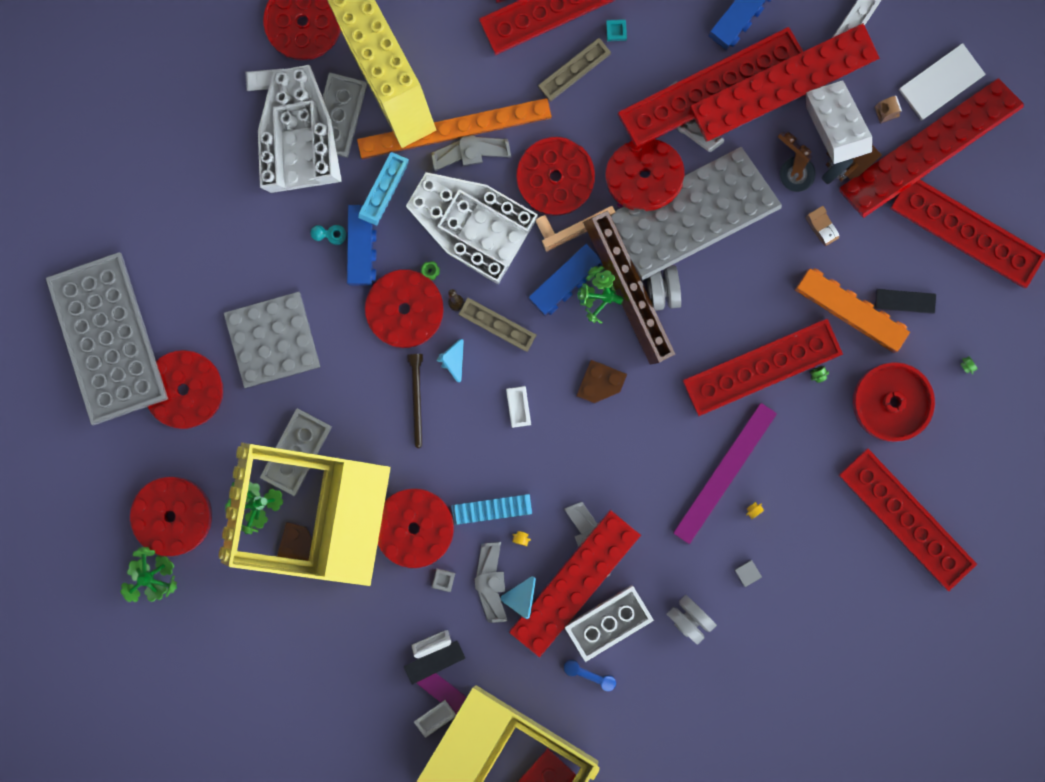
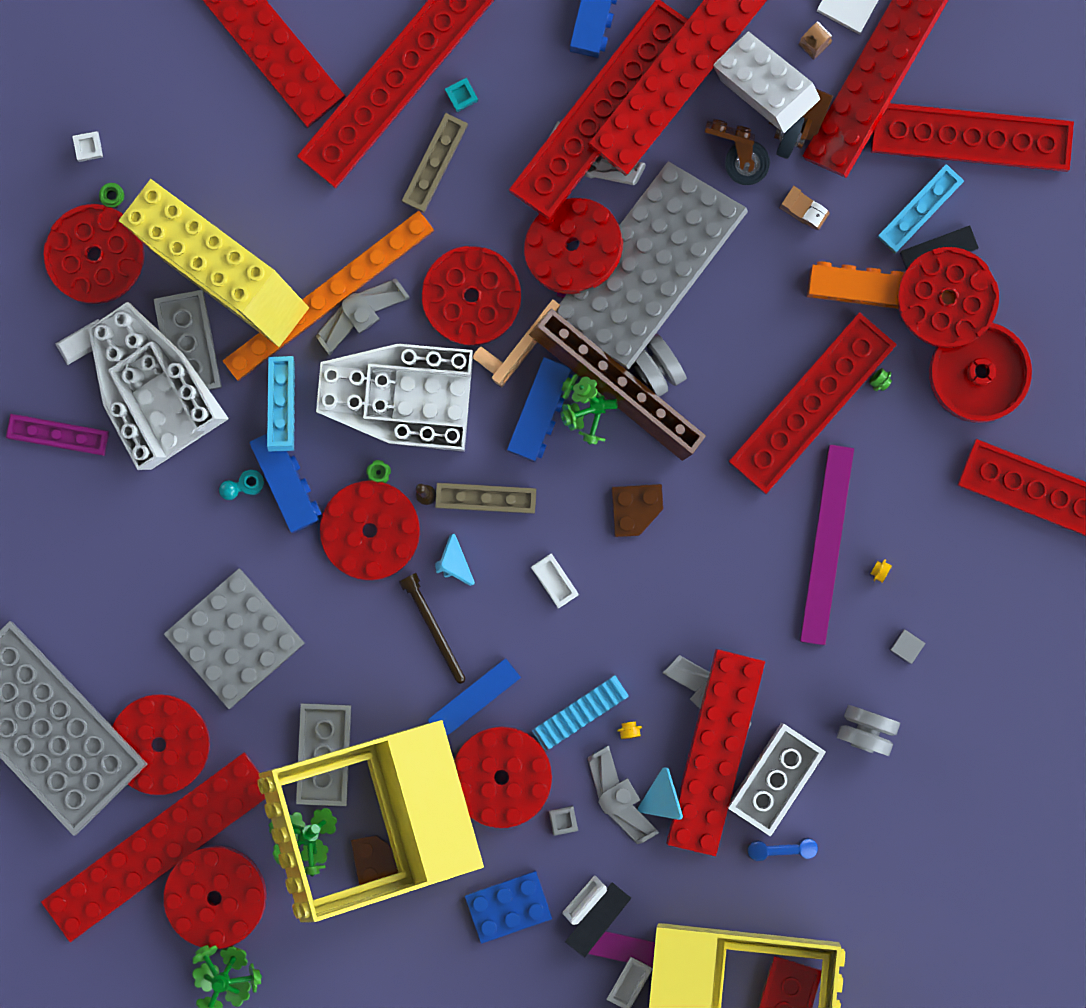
camera: 30 degrees left, 0 degrees up
(145, 461) = (155, 848): none -> red plate
(216, 136) = (57, 434): none -> magenta tile
(375, 622) = (508, 907): none -> blue plate
(423, 462) = (476, 696): none -> blue tile
(906, 265) = (920, 208): none -> medium azure gear
(916, 333) = (922, 302): none -> red plate
(968, 365) = (1045, 289): bright green plate -> none

